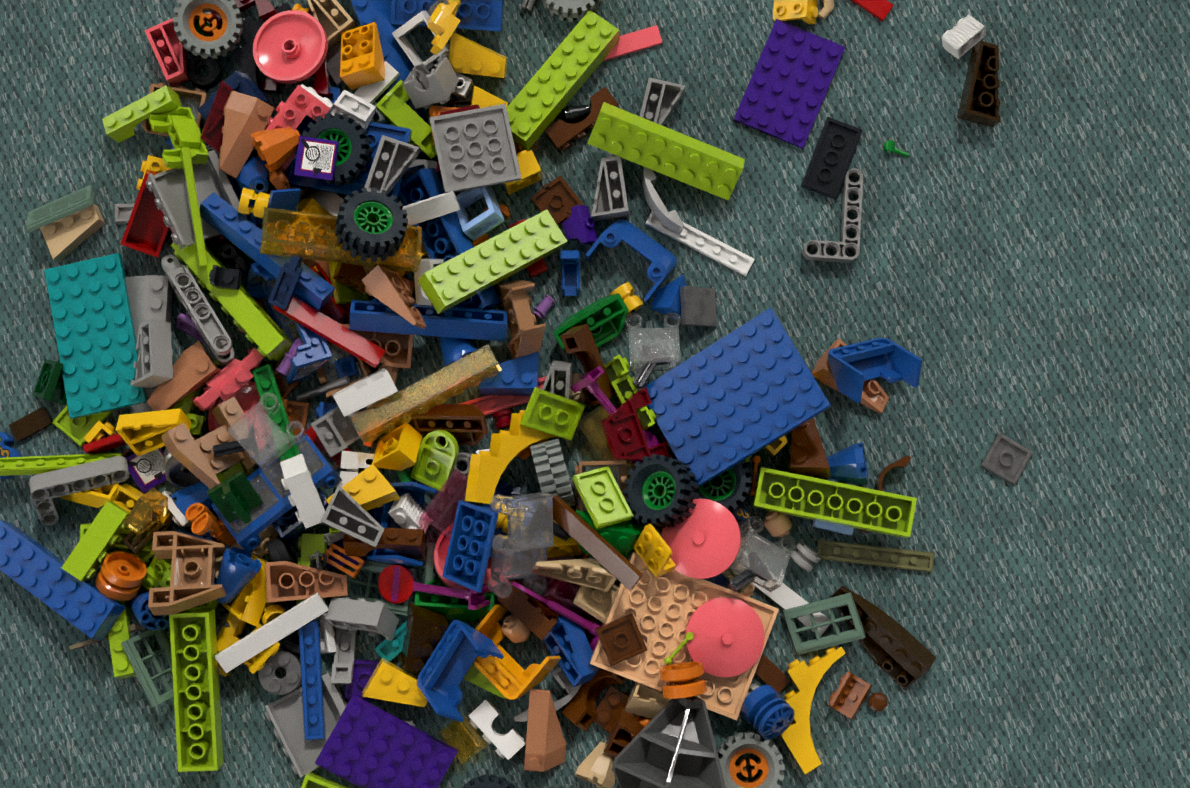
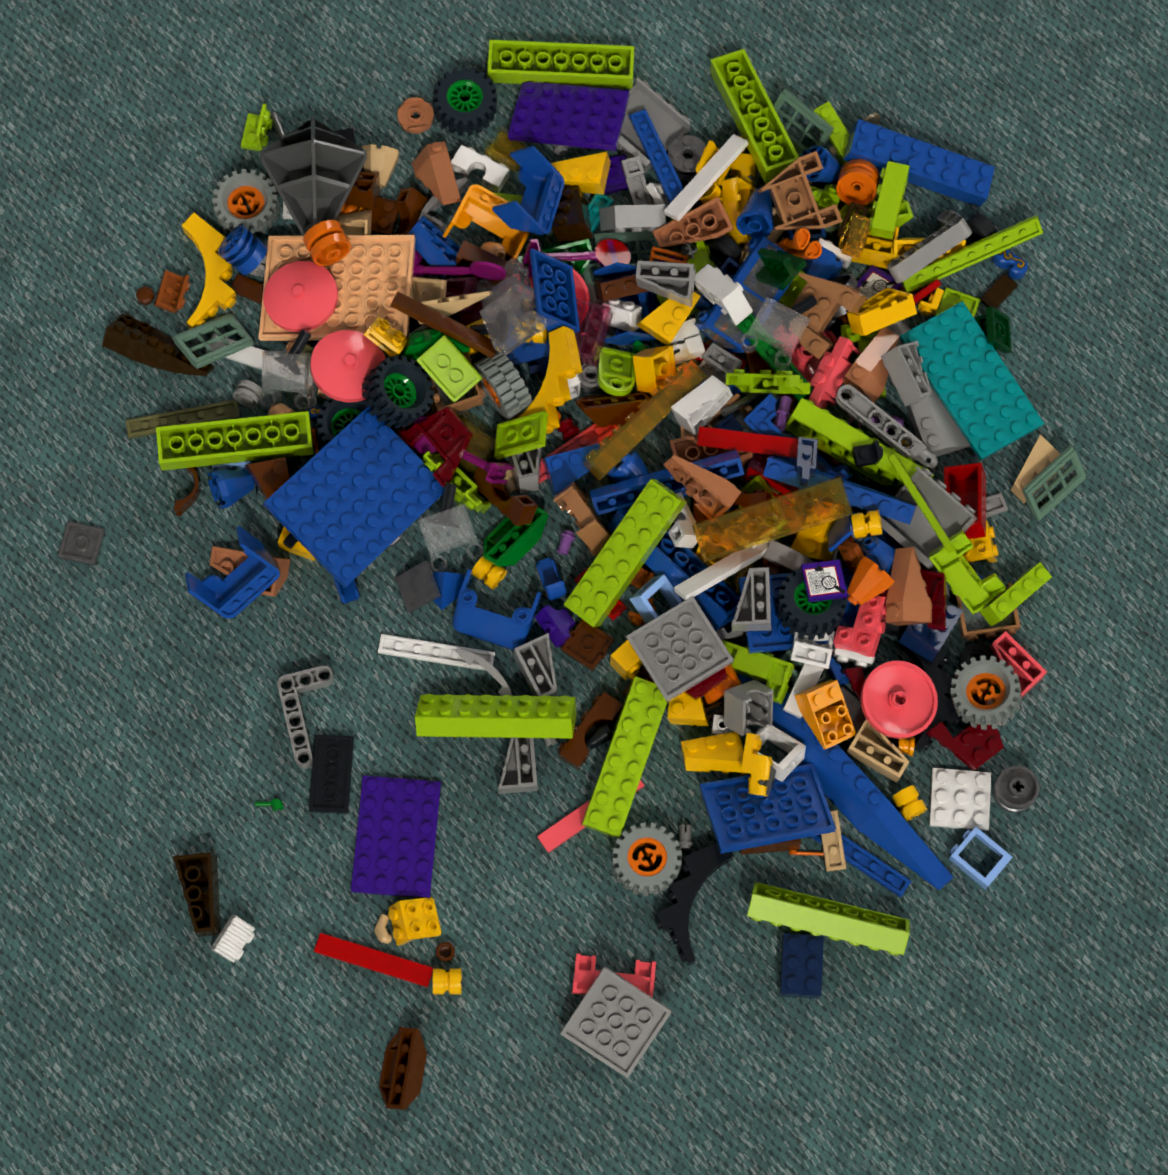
camera: 160 degrees right, 10 degrees down
(19, 491) = (980, 227): none -> black tyre
(291, 385) = (780, 383): none -> lime bracket
(368, 238) = (751, 511): black wheel -> none
(621, 639) = (393, 262): reddish brown tile -> none
(689, 636) = (332, 283): lime hinge -> none

